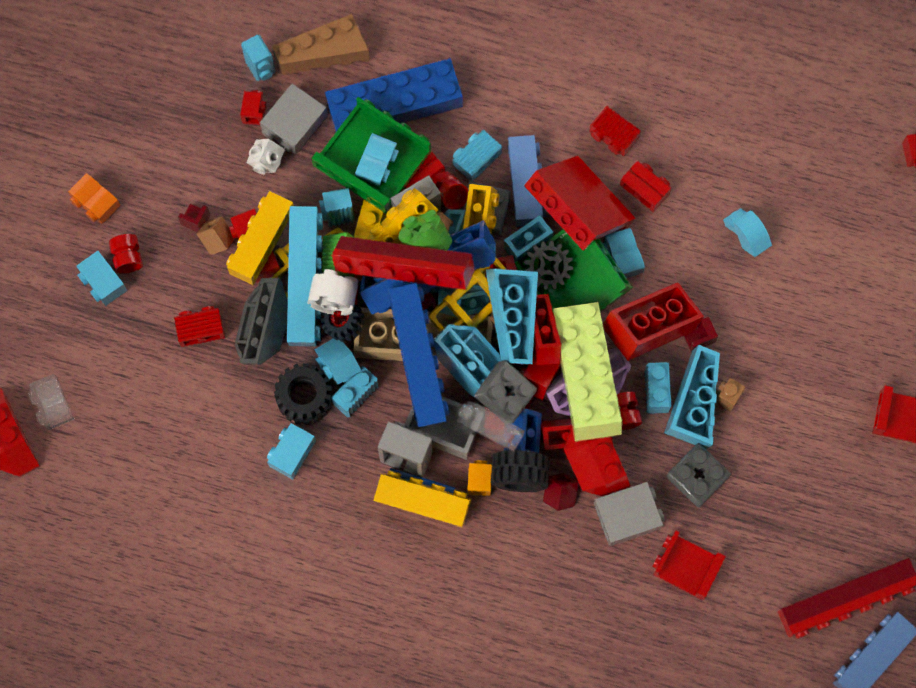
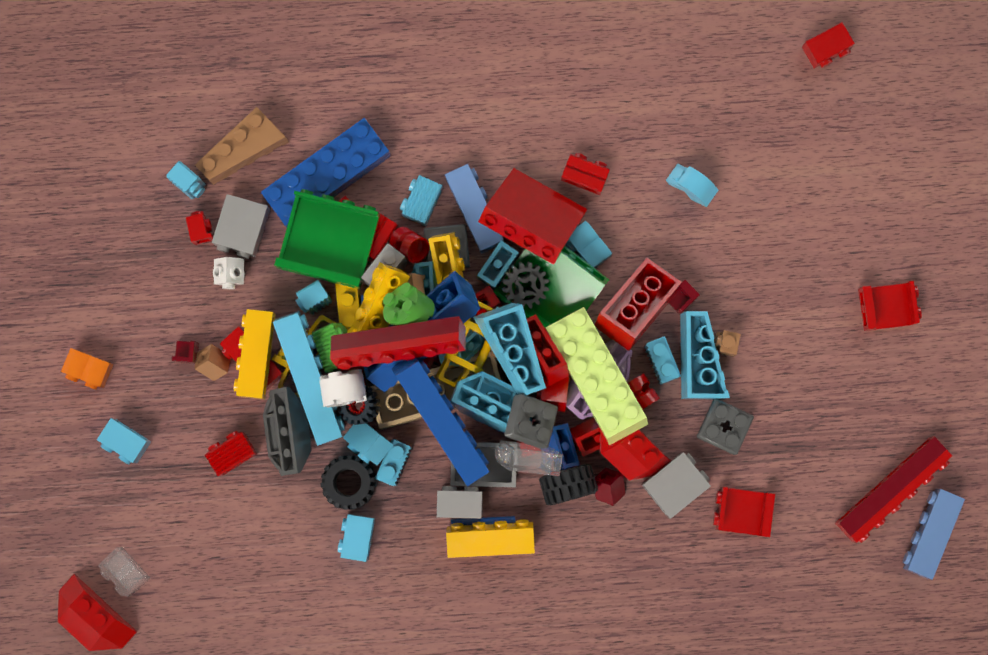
camera: 15 degrees left, 10 degrees up
(126, 257) = (136, 409): red wheel -> none
(376, 159) = (334, 245): medium azure brick -> none
(479, 478) = (533, 500): light orange brick -> none
(614, 131) = (538, 132): red brick -> none

